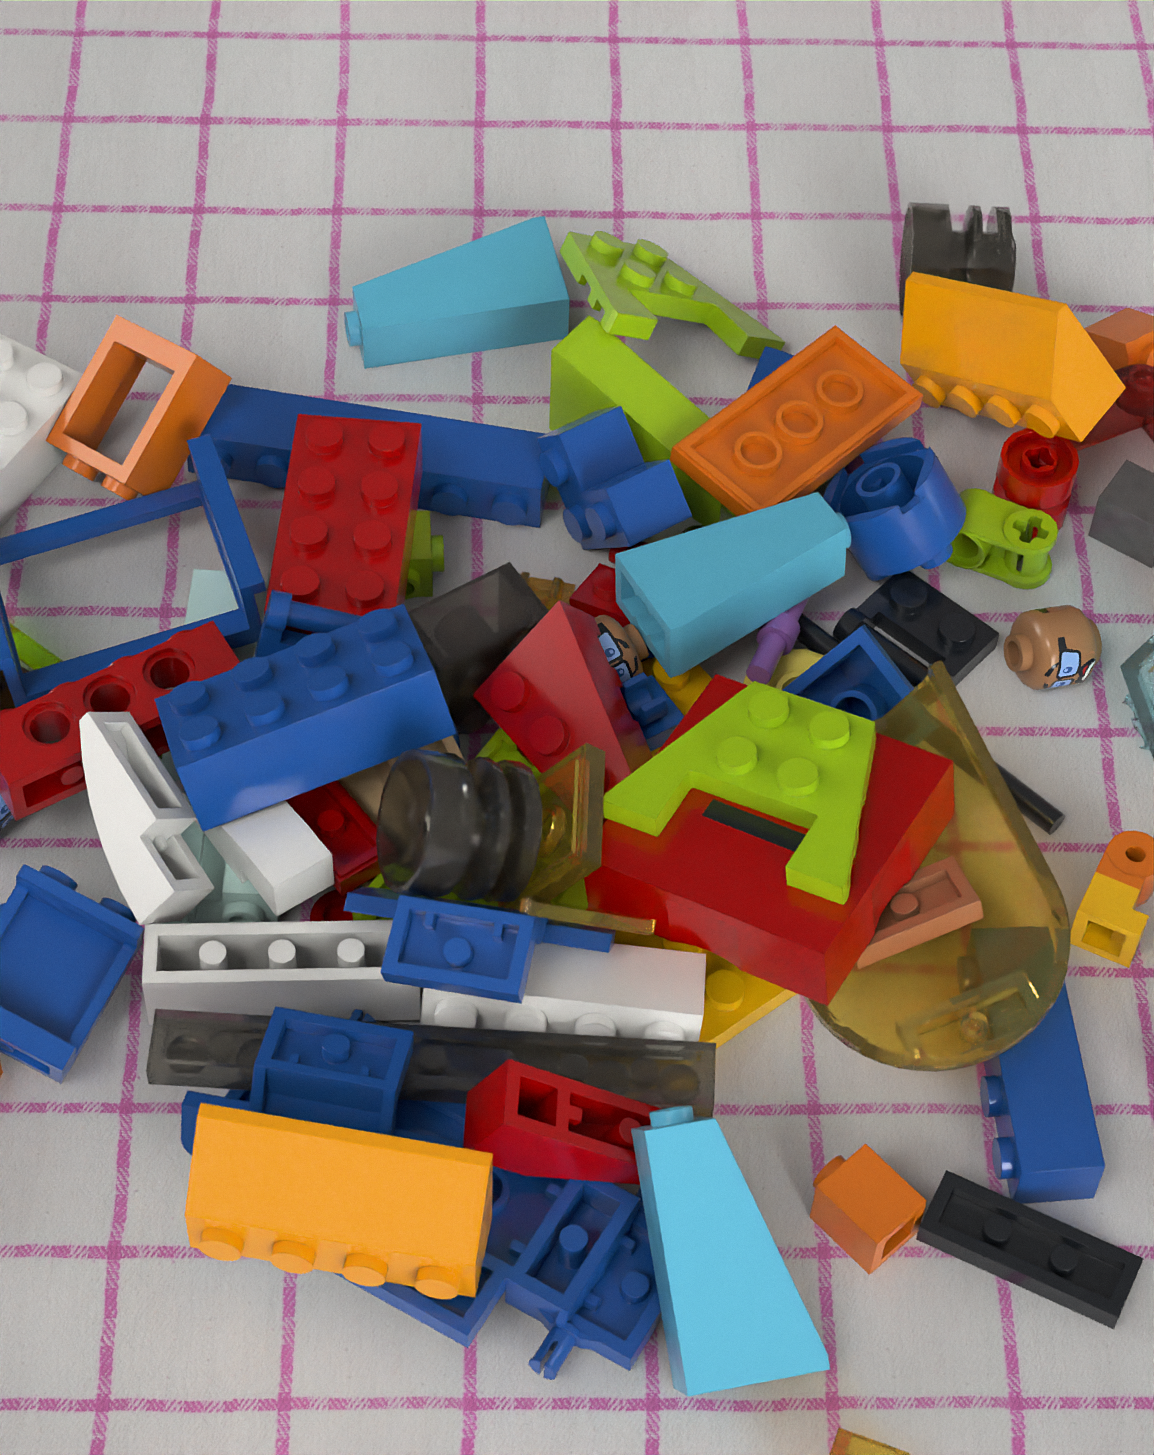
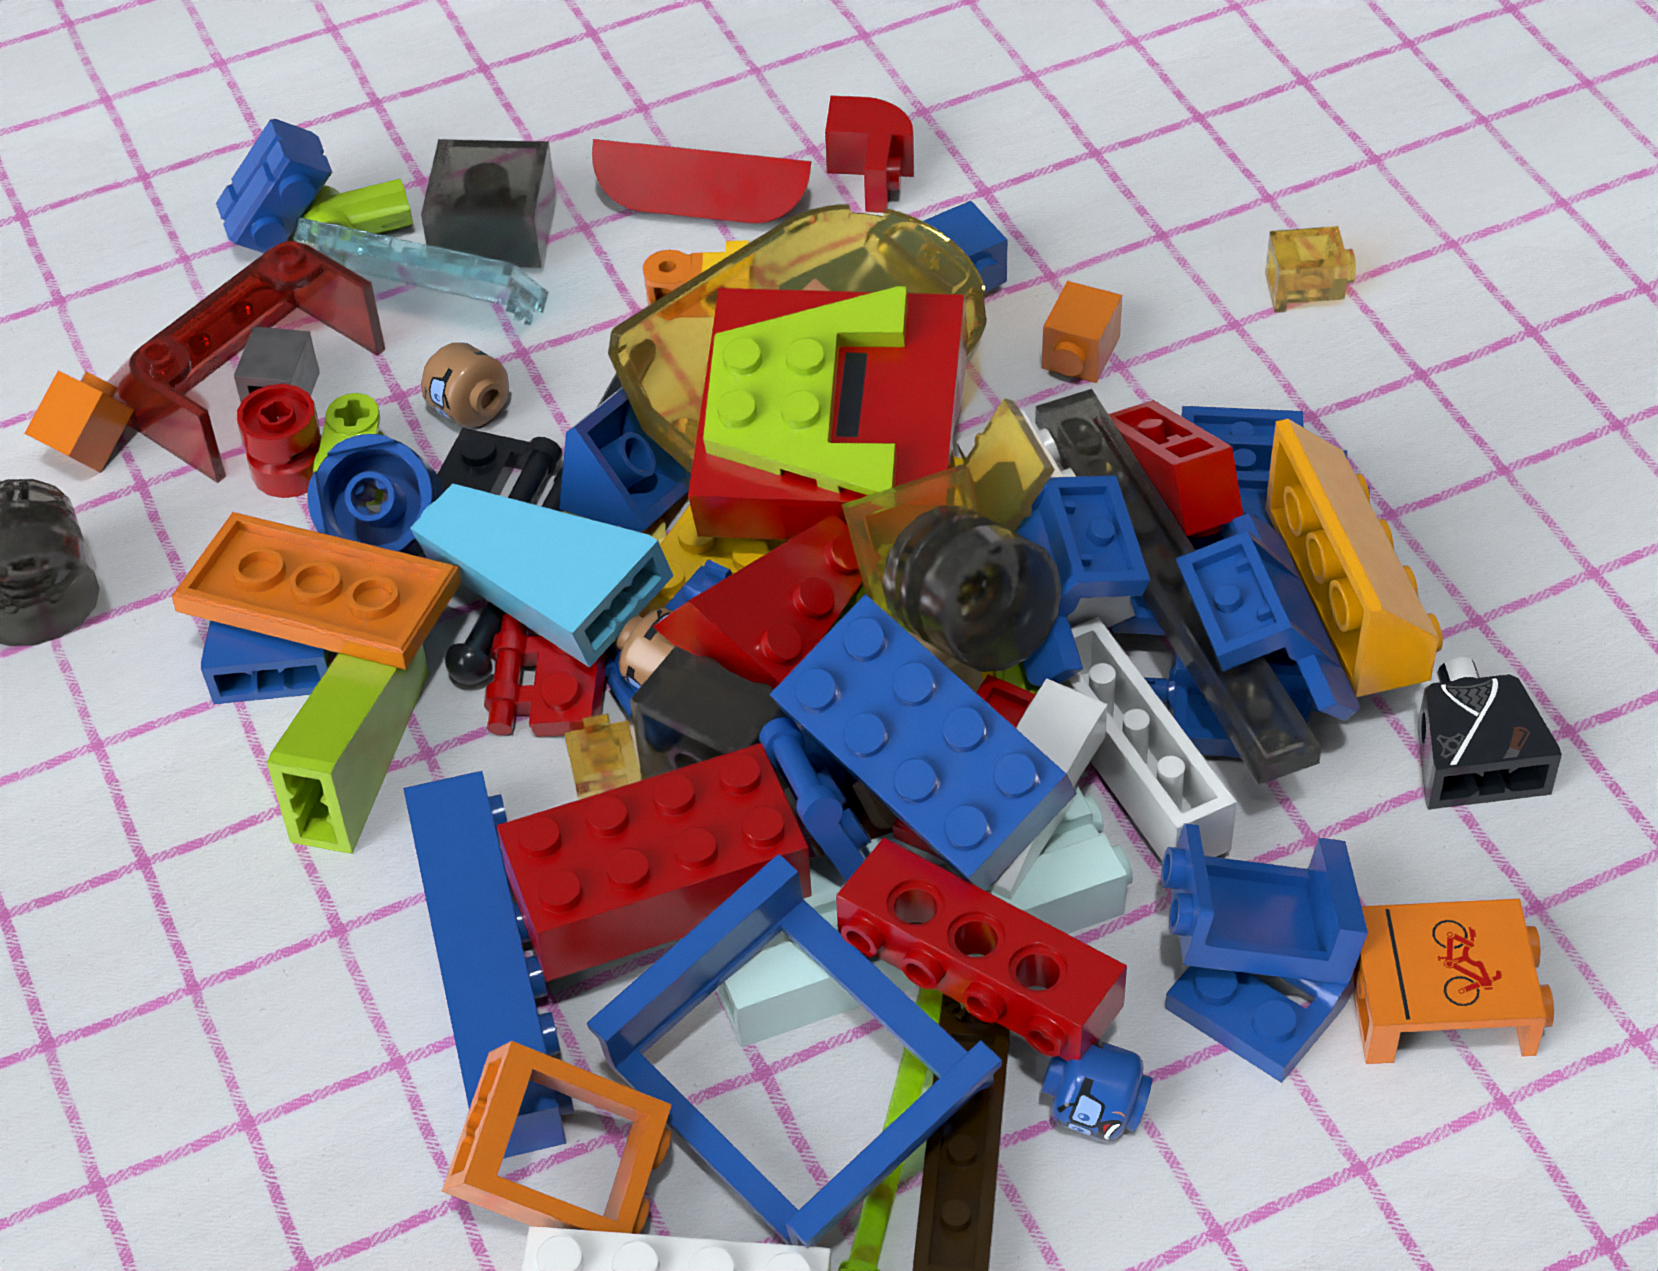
camera: 110 degrees left, 5 degrees down
(122, 1285) = (1482, 739): none -> black torso
(140, 819) = (1094, 843): white slope -> none
(464, 300) = (214, 967): medium azure slope -> none
(607, 485) = (464, 706): blue brick -> none
(641, 282) = (151, 793): lime wing -> none
(717, 1271) = (1215, 360): medium azure slope -> none
(1004, 357) = (185, 444): light orange slope -> none
(1029, 1249) = (1046, 242): black plate -> none

